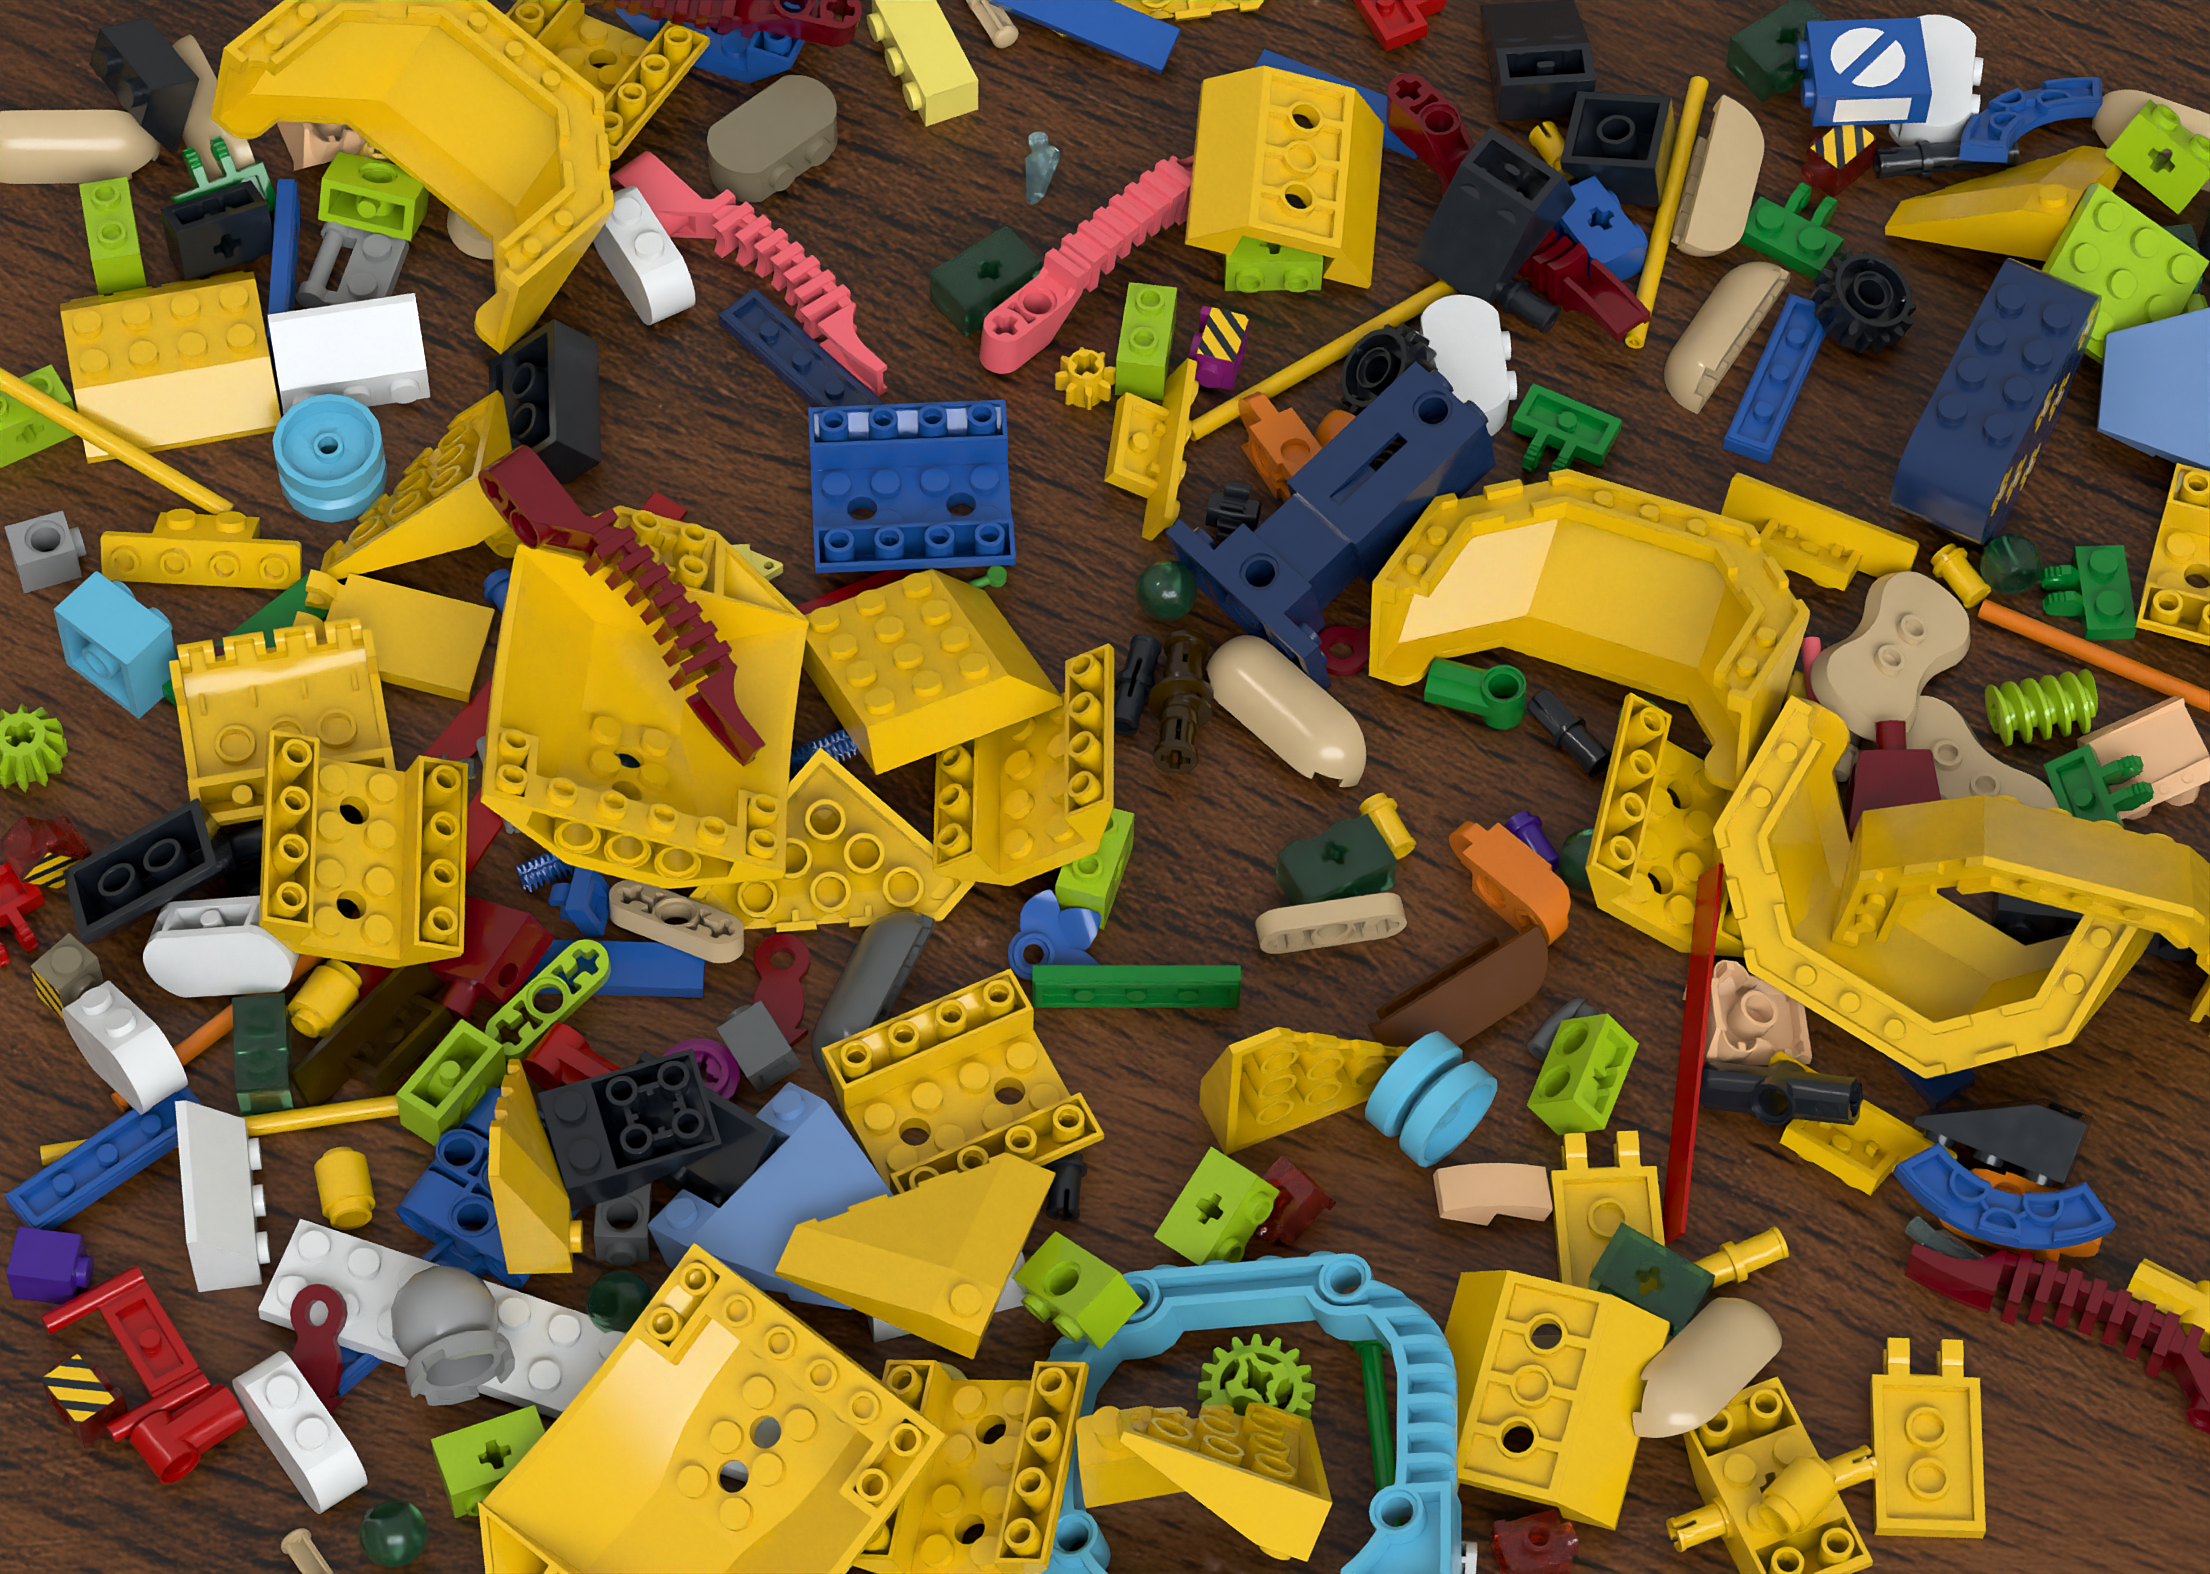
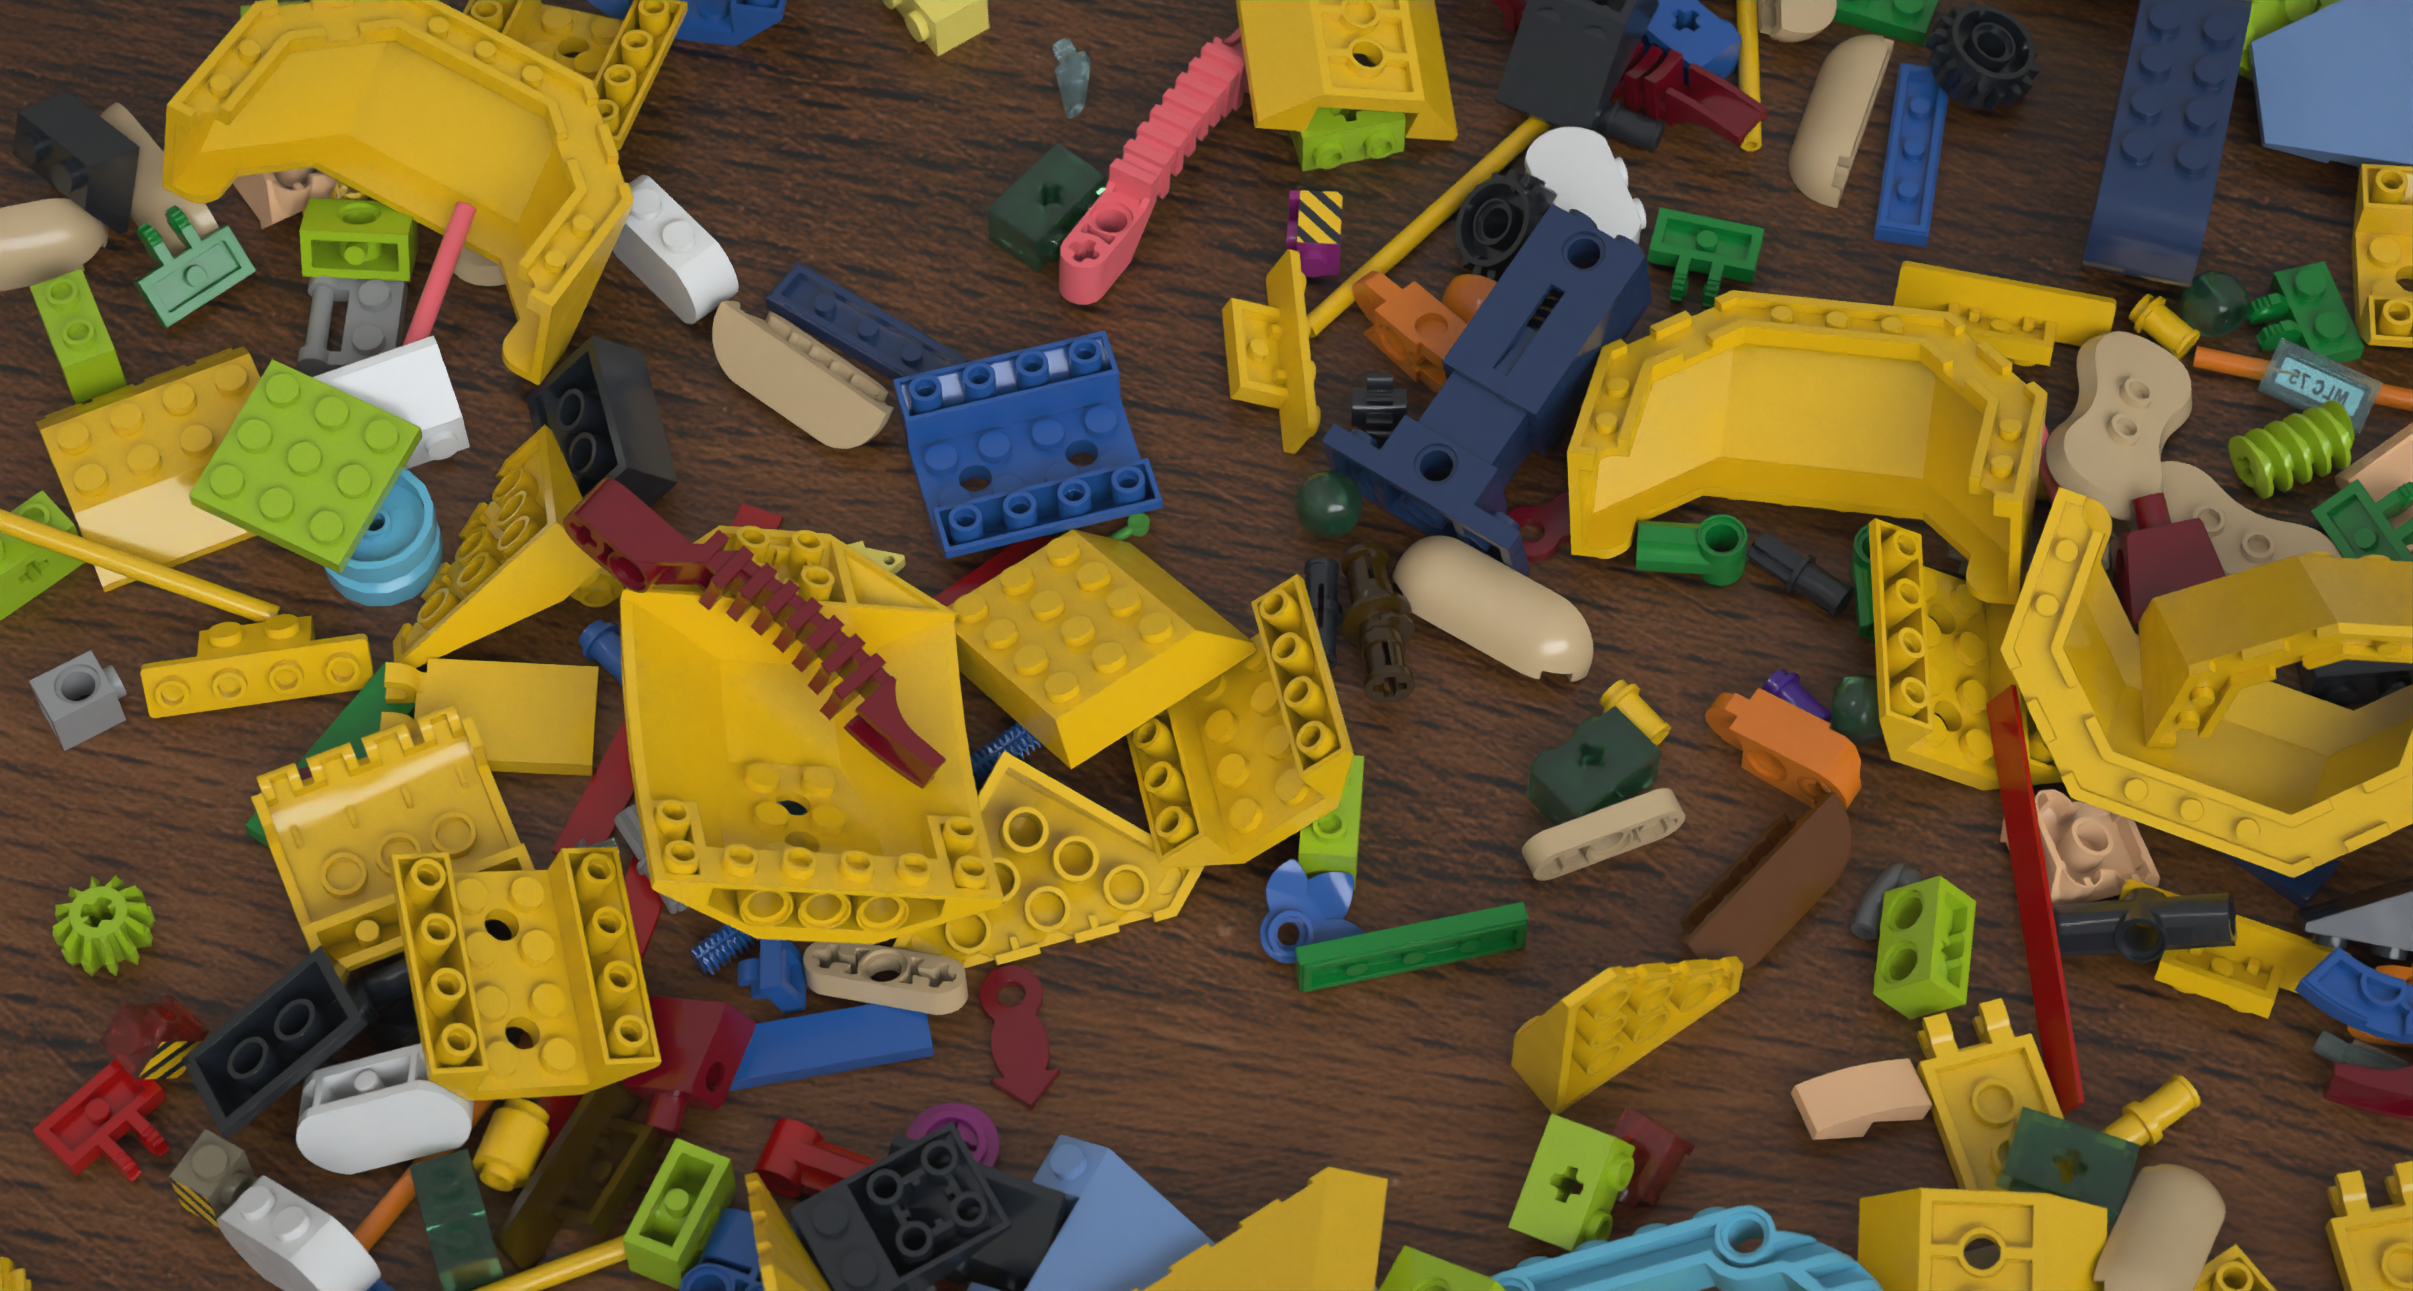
camera: 10 degrees left, 0 degrees up
(116, 642) = (185, 786): medium azure brick -> none
(218, 230) = (195, 308): black brick -> none
(279, 386) = (306, 466): none -> lime plate
(284, 252) = (271, 302): blue tile -> none
(437, 238) = (441, 272): none -> coral piece
(584, 982) = (775, 1049): lime beam -> none
(730, 389) = (799, 377): none -> tan brick
(758, 1045) = (1012, 1098): dark grey brick -> none
(773, 138) = (778, 99): dark tan brick -> none
(819, 301) = (872, 261): coral piece -> none
(871, 979) = (1115, 1016): dark grey brick -> none
(942, 1074) = (1222, 1092): yellow slope -> none
(1066, 1186) = (1392, 1165): black pin -> none
(1085, 378) = (1181, 292): yellow gear -> none
(1146, 340) = (1236, 239): lime brick -> none
(1430, 1099) = (1771, 1009): medium azure wheel -> none
(2076, 647) = (2310, 380): none -> clear light blue tile

